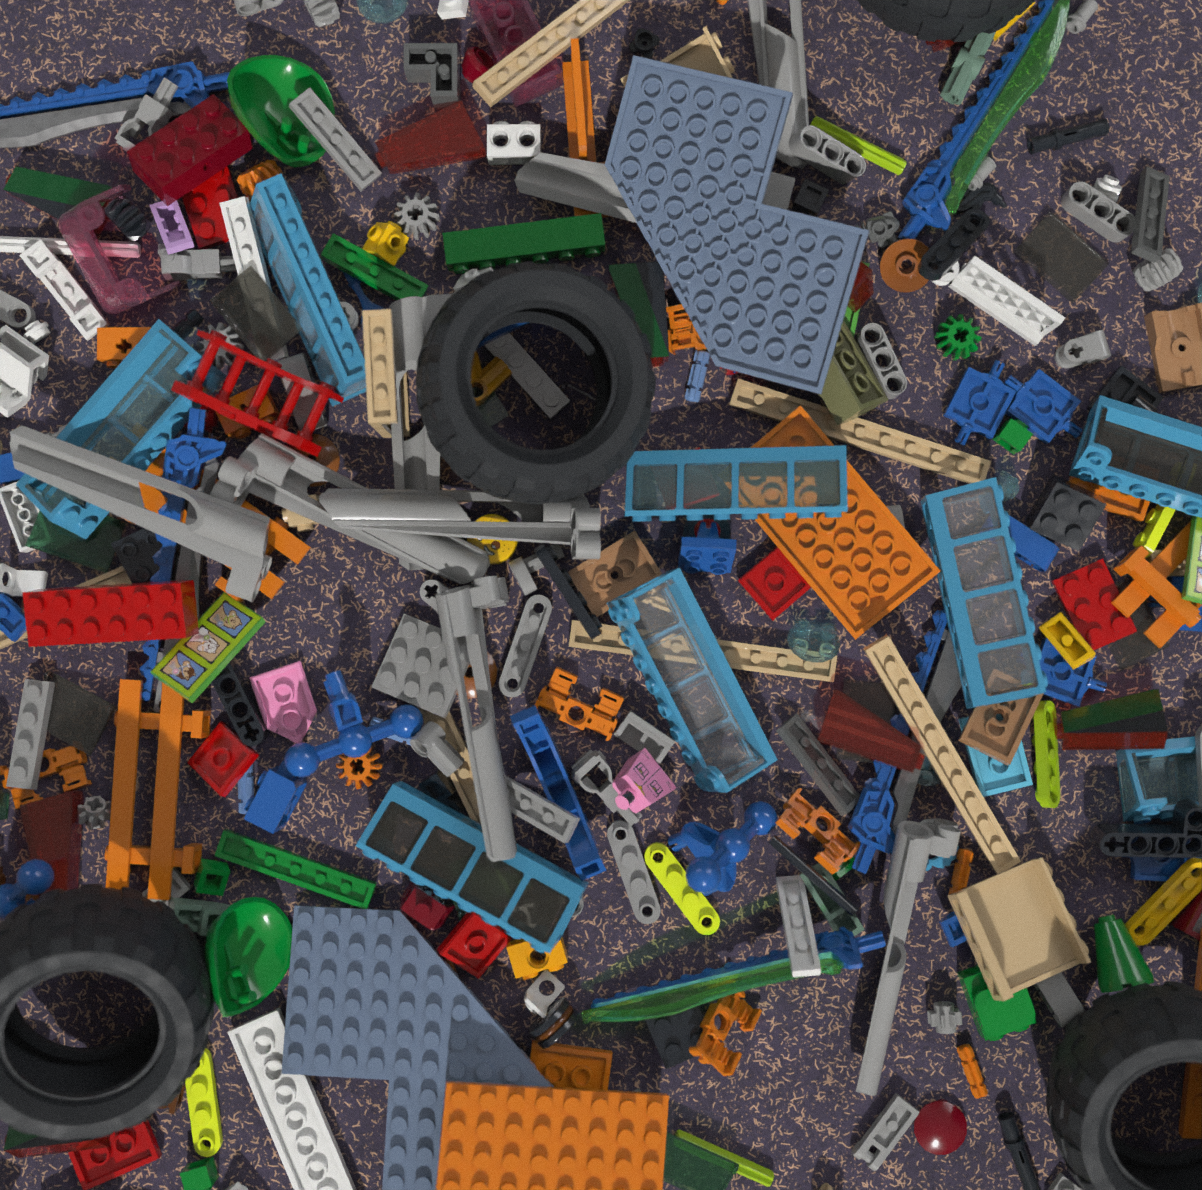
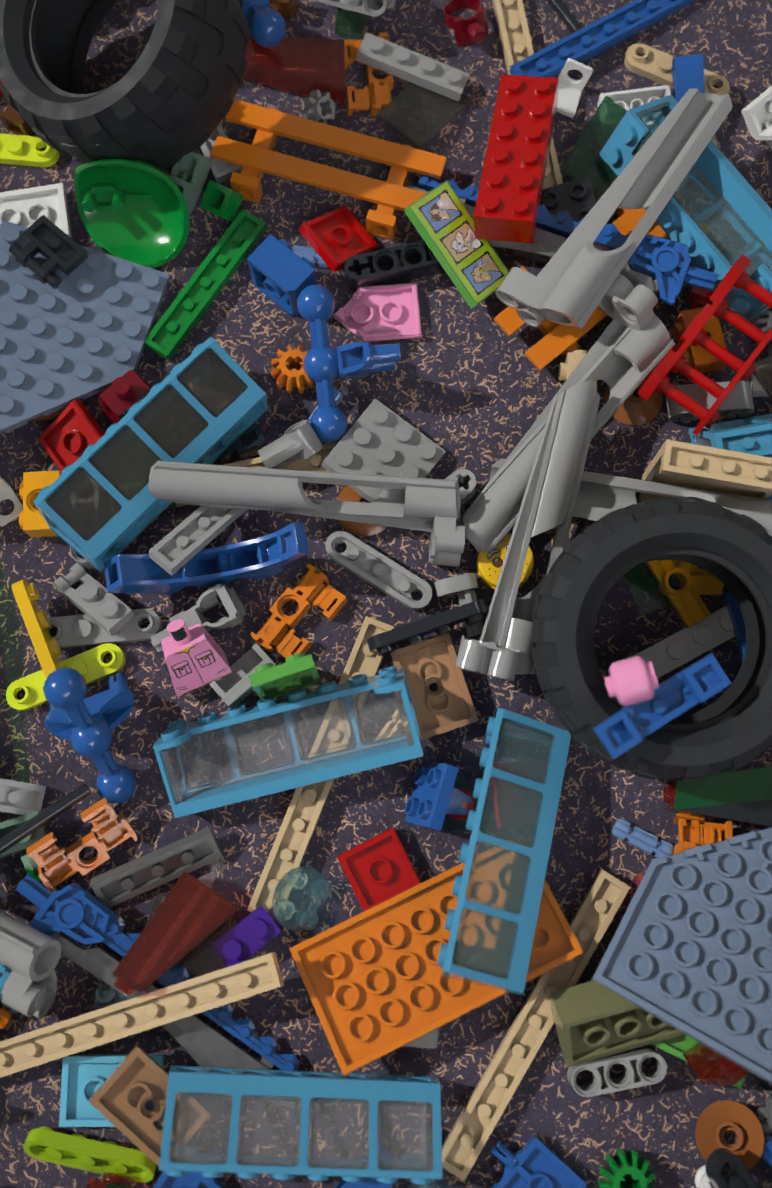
camera: 110 degrees right, 10 degrees down
(297, 1016) = (54, 245): none -> black plate
(590, 410) = (631, 681): none -> bright pink head
(603, 383) = (670, 700): none -> blue slope
(611, 883) = (94, 600): none -> light grey plate
(646, 707) = (279, 680): none -> bright green plate
(647, 923) = (37, 624): none -> yellow plate
(854, 675) = (247, 936): none -> dark purple plate

